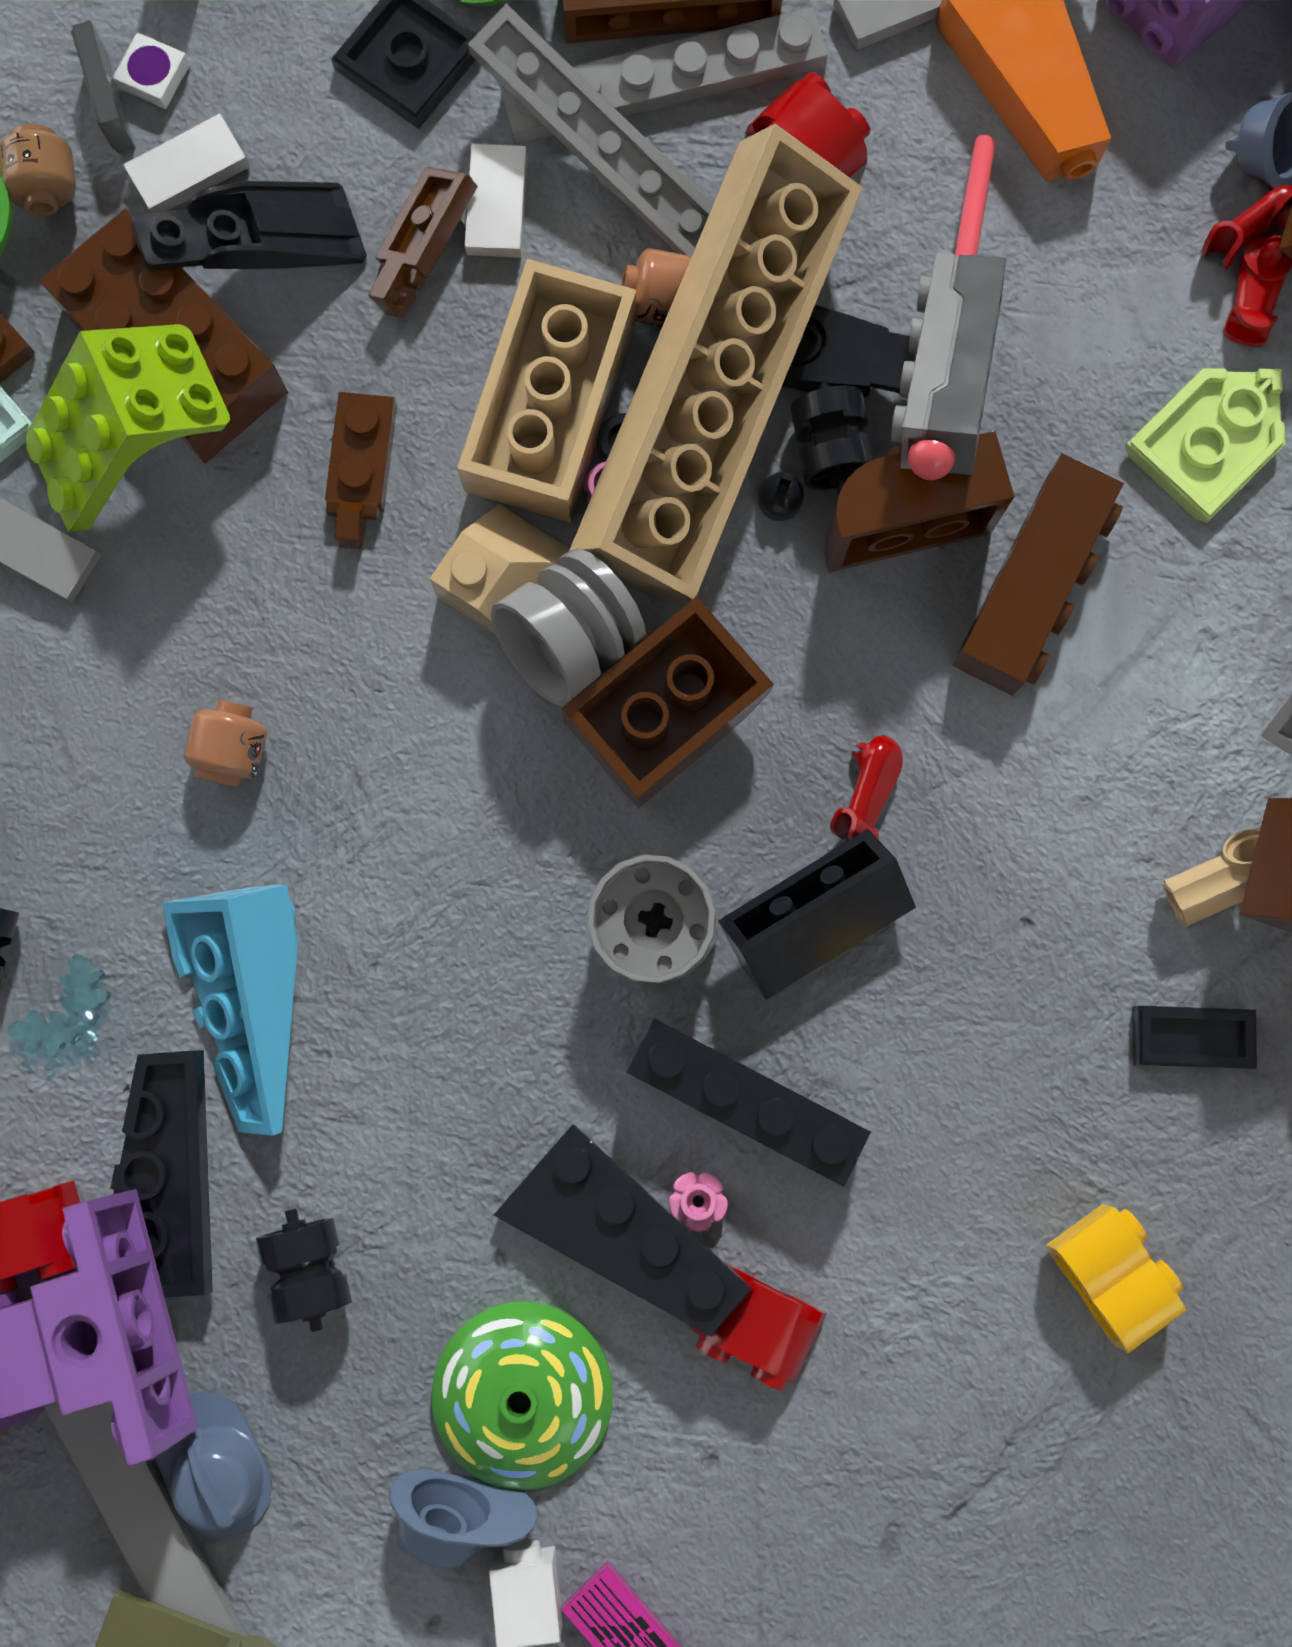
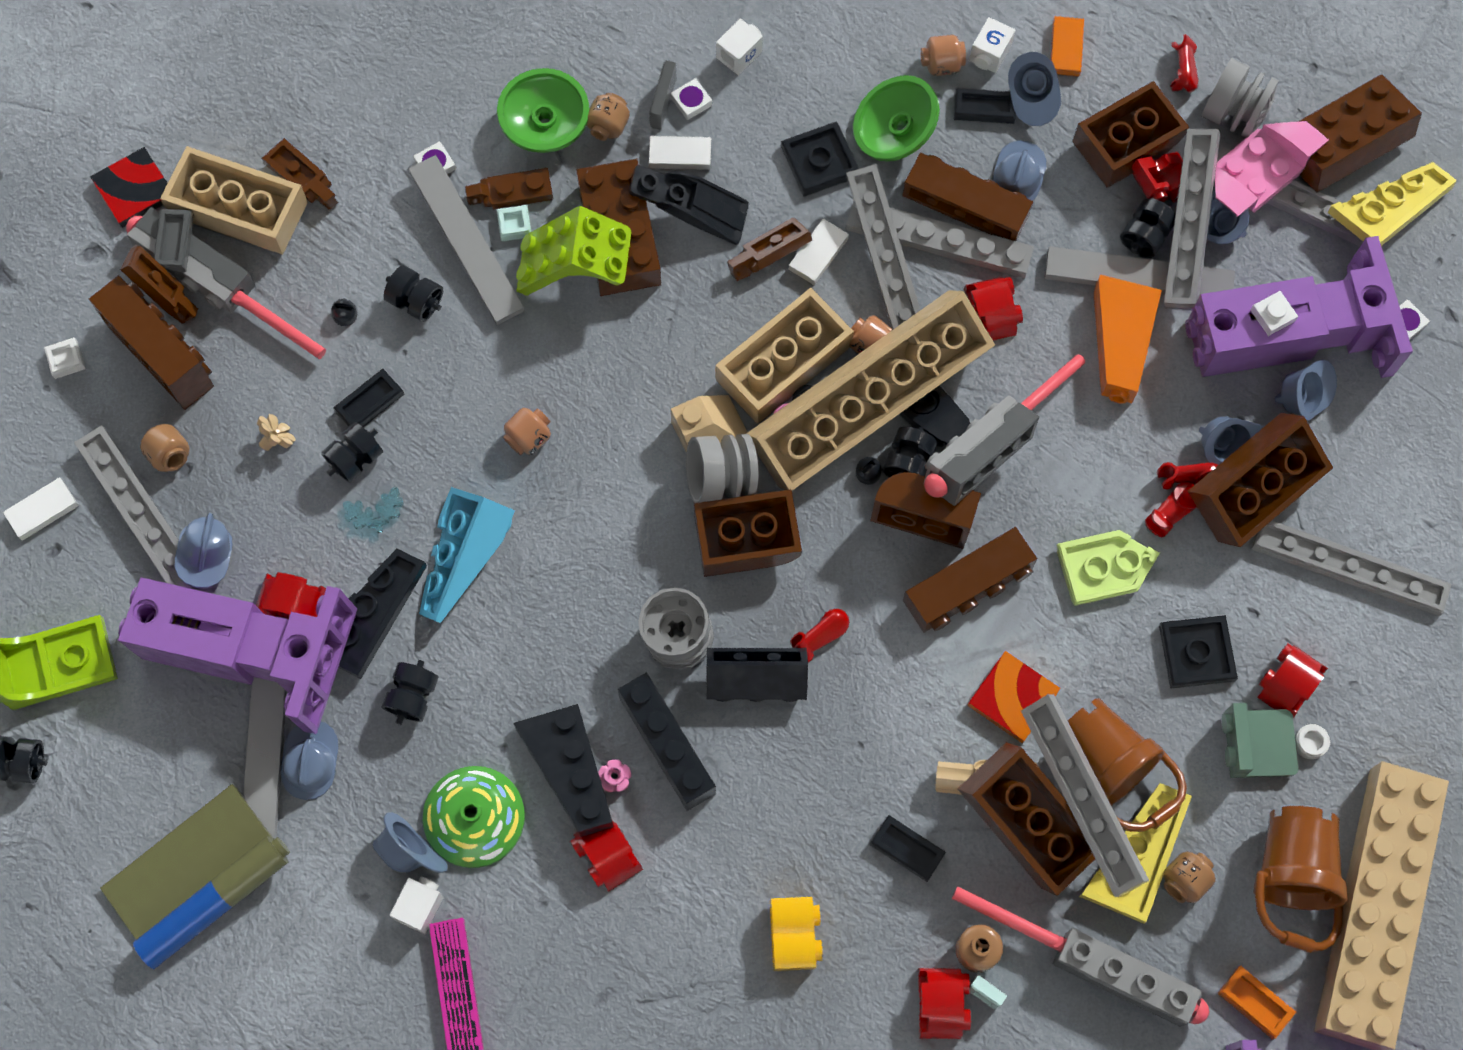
camera: 30 degrees right, 10 degrees down
(359, 463) = (673, 338): reddish brown hinge -> none
(1205, 713) = (1009, 690): none -> tile

